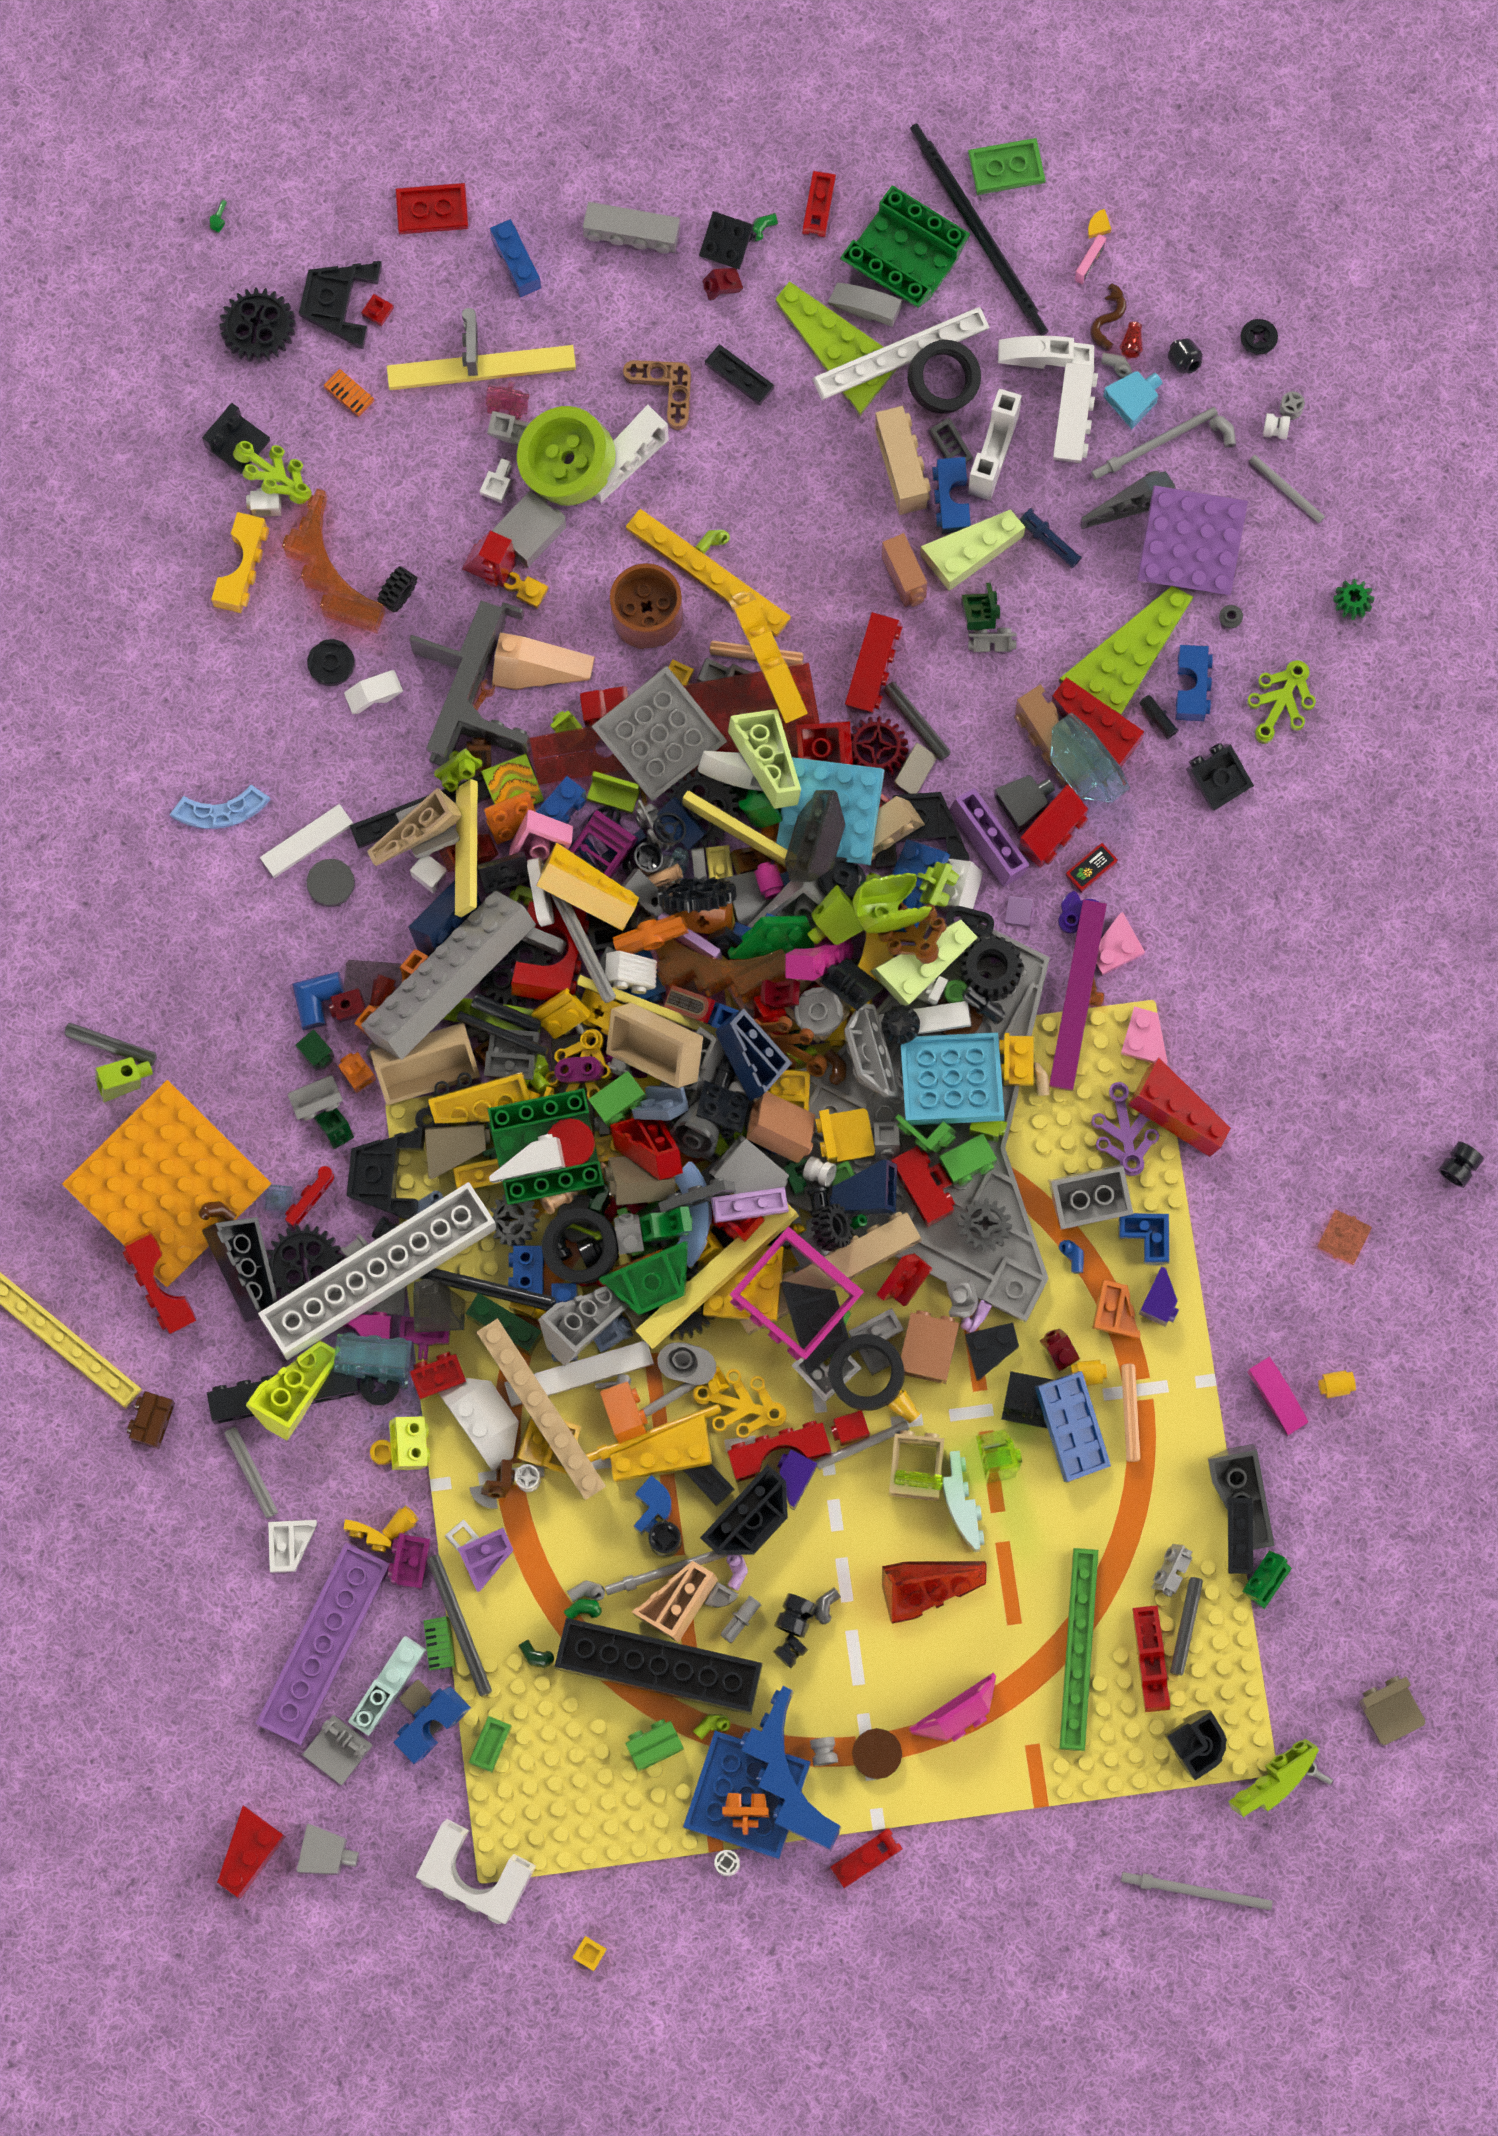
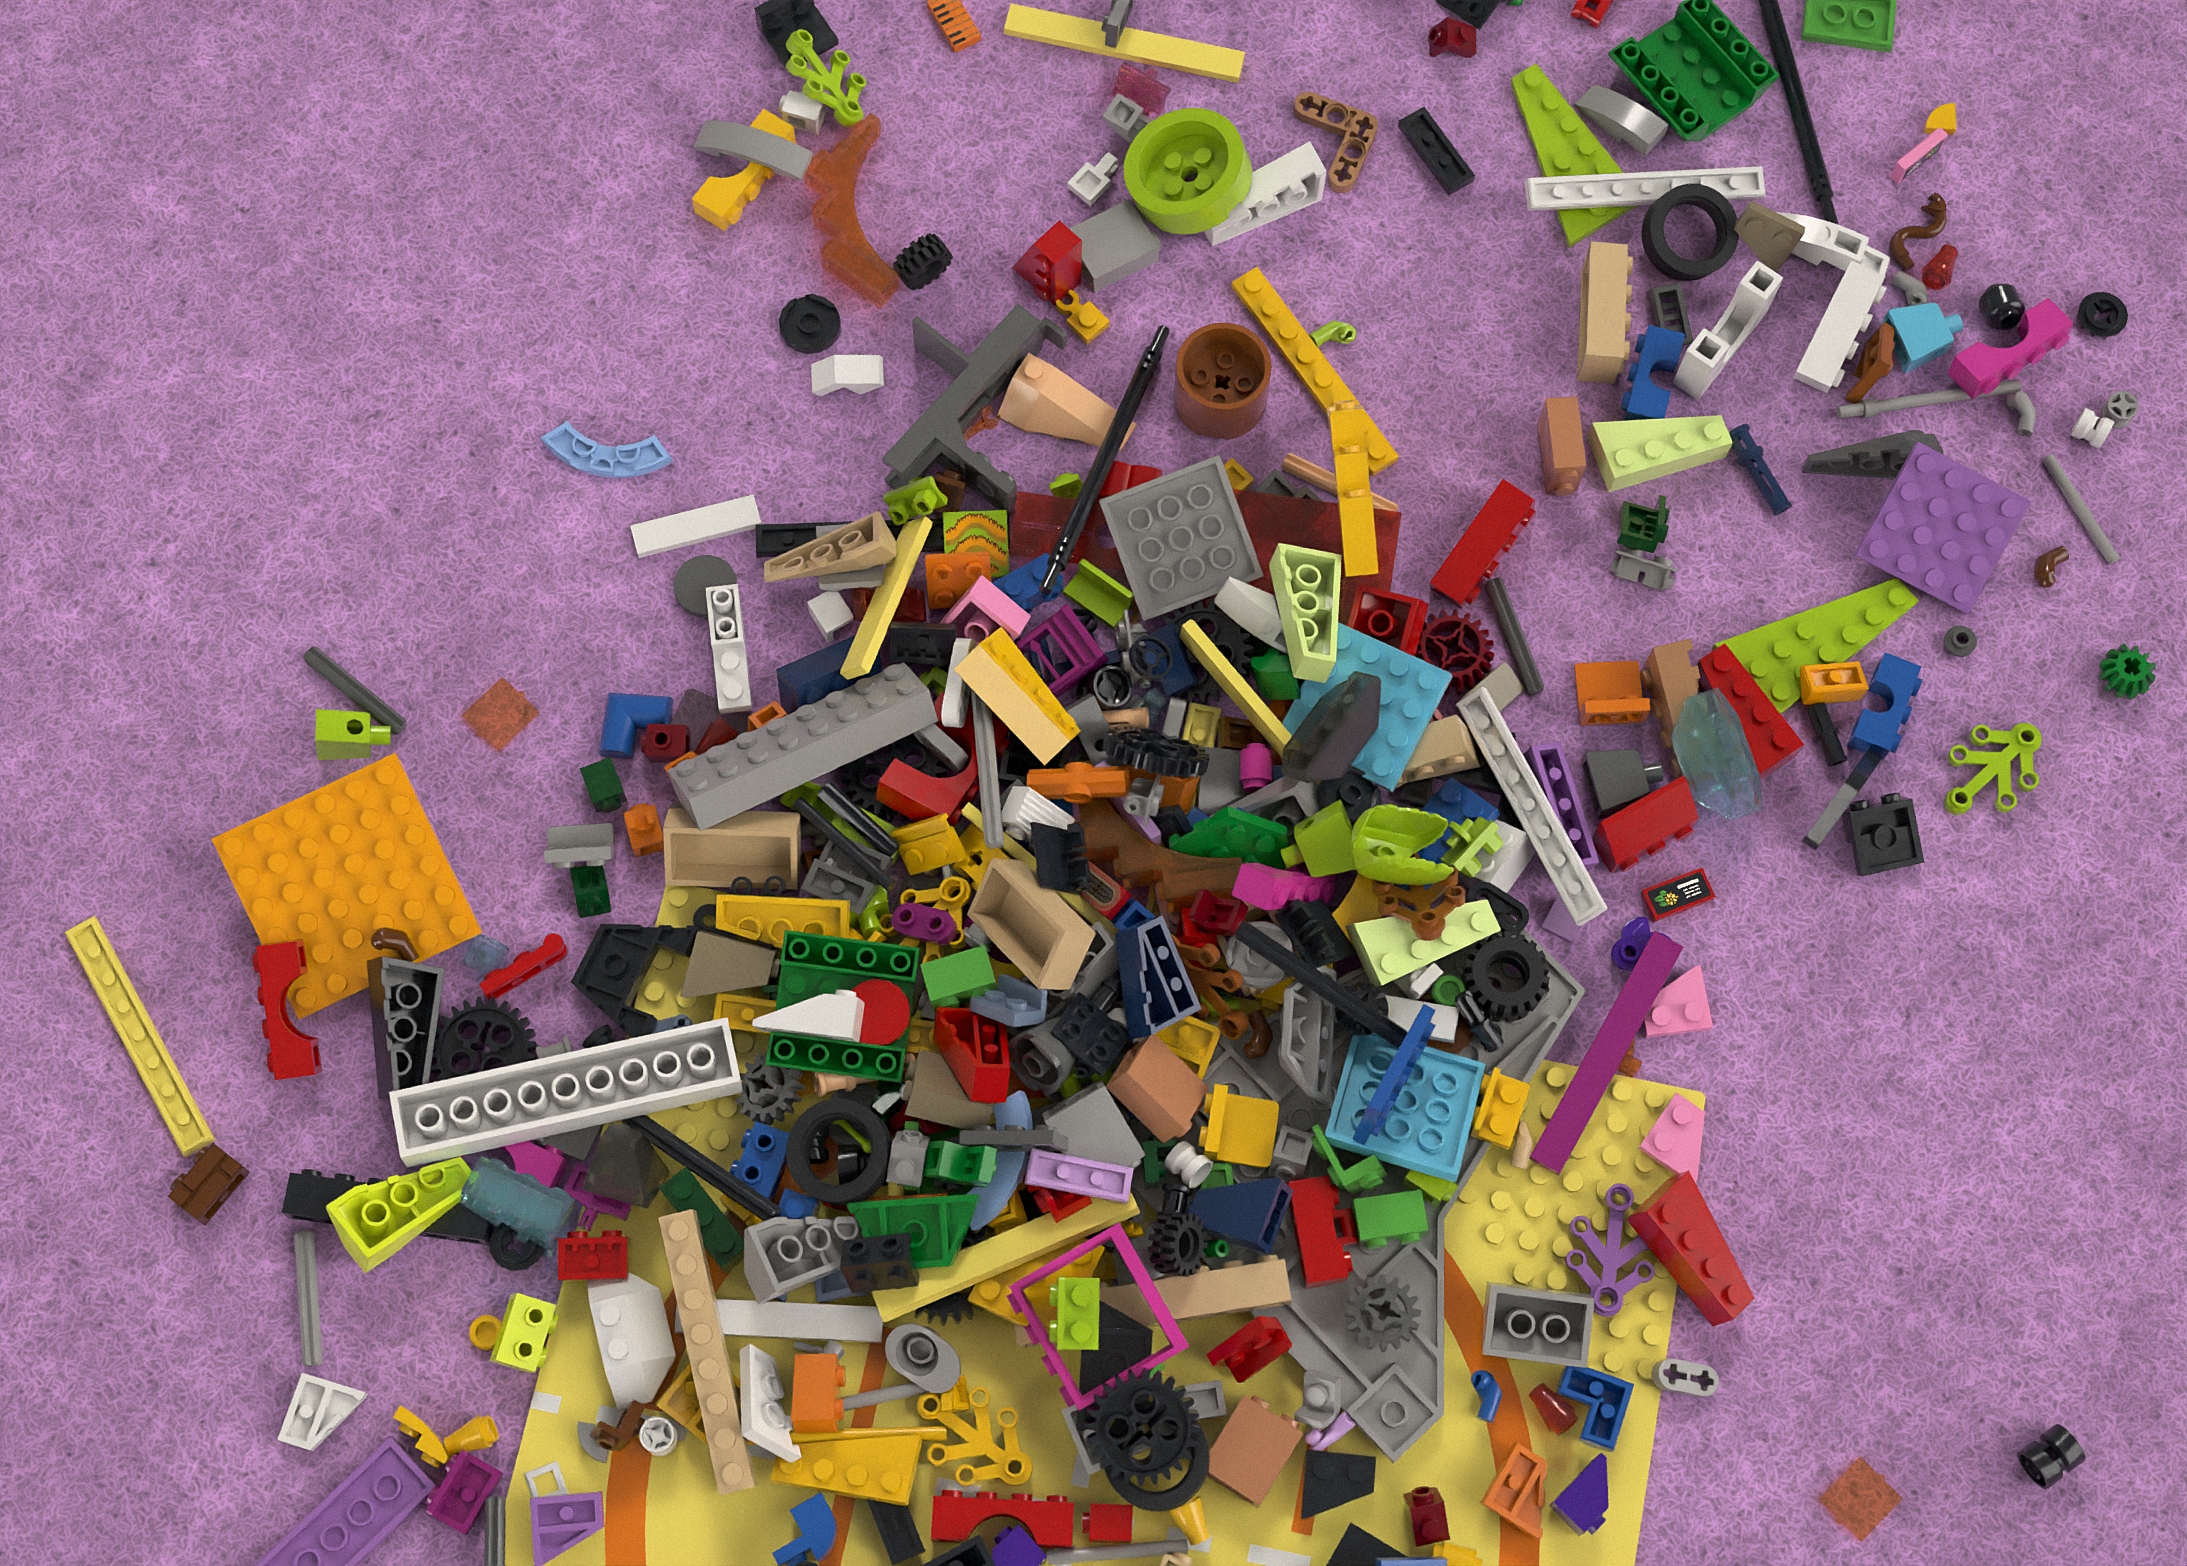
camera: 15 degrees right, 5 degrees down
(220, 1025) = (500, 714): none -> clear orange piece
(241, 543) = (754, 146): none -> light grey slope
(366, 922) = (729, 649): none -> white slope
(583, 692) = (1103, 461): none -> black axle
(590, 1434) = (761, 1405): none -> white wing
(635, 1310) = (879, 1263): none -> black bracket
(655, 992) = (1058, 857): none -> black hinge
(700, 929) = (1144, 798): none -> light grey hinge
(781, 1296) = (1076, 1313): none -> lime bracket
(867, 1017) = (1320, 983): none -> black axle
(871, 1365) = (1165, 1449): none -> black gear
(940, 1062) = (1396, 1076): none -> blue plate
(969, 841) = (1531, 807): none -> white tile
(997, 739) = (1610, 693): none -> orange bracket
(1001, 360) = (1768, 234): none -> dark tan wing
(1107, 430) = (1874, 362): none -> dark orange wing
(1120, 1249) = (1554, 1410): none -> clear red cone
(1150, 678) = (1832, 683): none -> light orange slope
(1183, 759) = (1842, 799): none -> beam
(1185, 408) = (1984, 367): none -> dark pink arch
(1201, 1192) = (1685, 1370): none -> light grey beam
(1274, 540) = (2045, 566): none -> reddish brown arm

